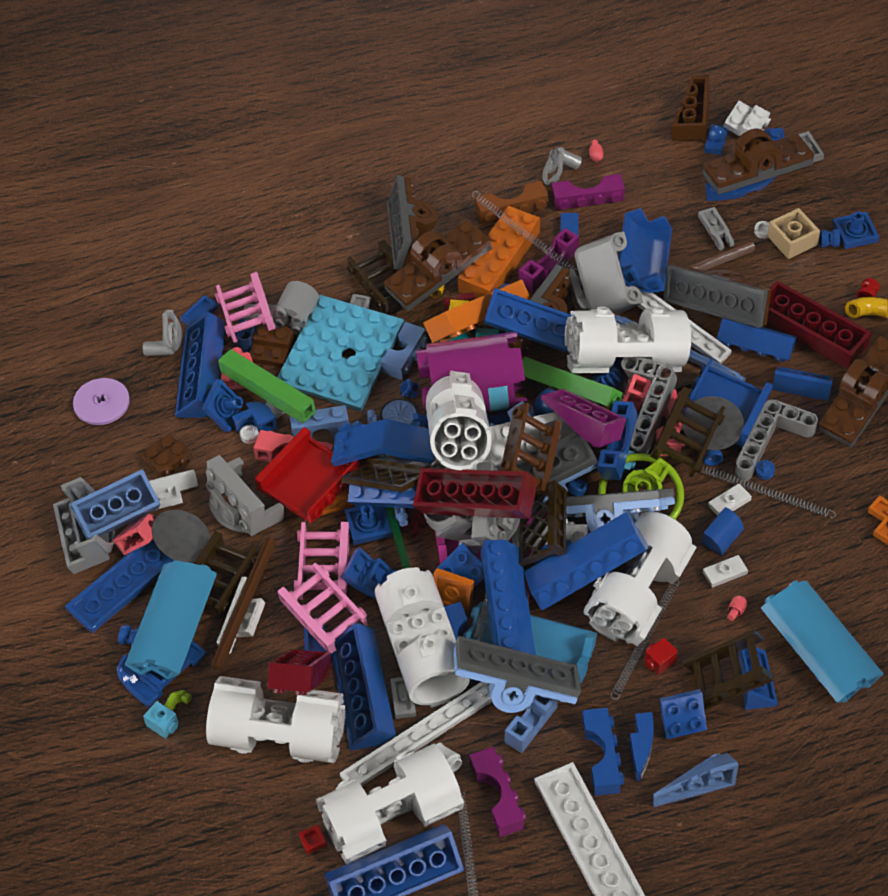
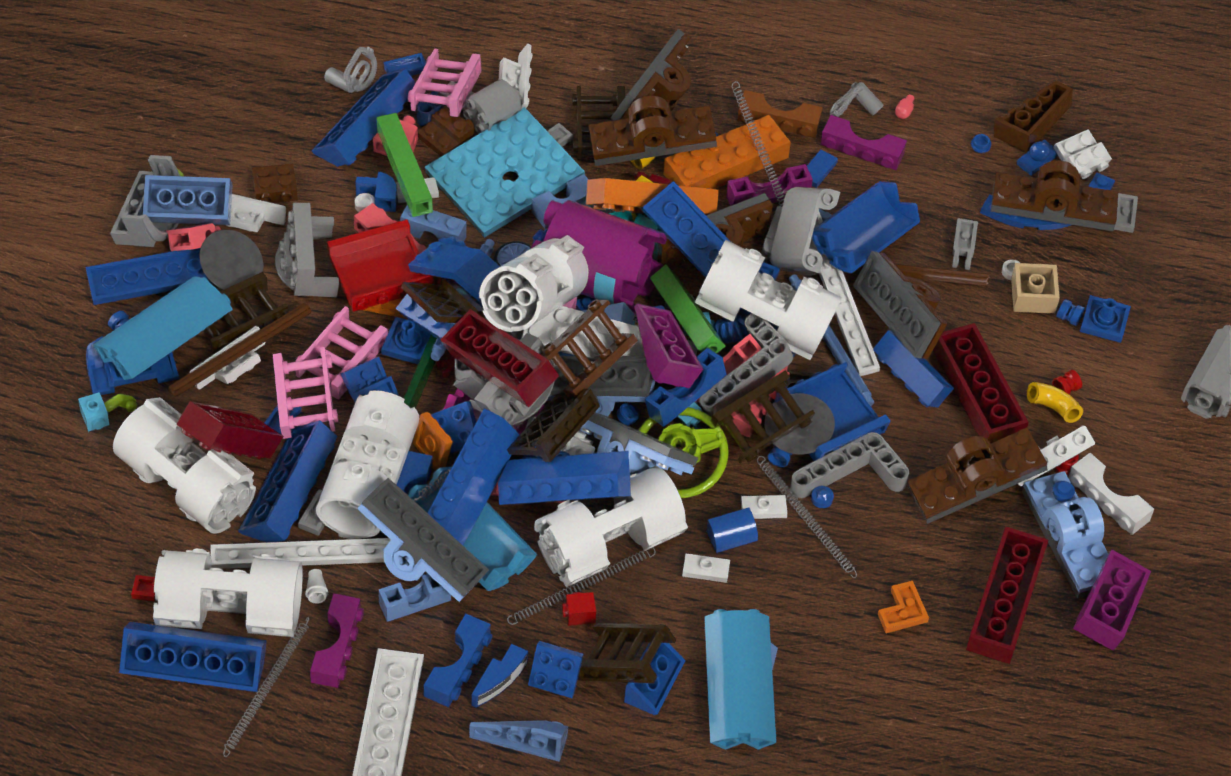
camera: 25 degrees right, 0 degrees up
(107, 411) = (243, 104): lavender piece -> none
(222, 405) = (354, 161): blue plate -> none
(291, 269) = (518, 73): none -> white bracket
(669, 149) = (981, 143): none -> blue plate
(736, 607) = (689, 606): coral cylinder -> none
(802, 383) = (924, 434): blue slope -> none

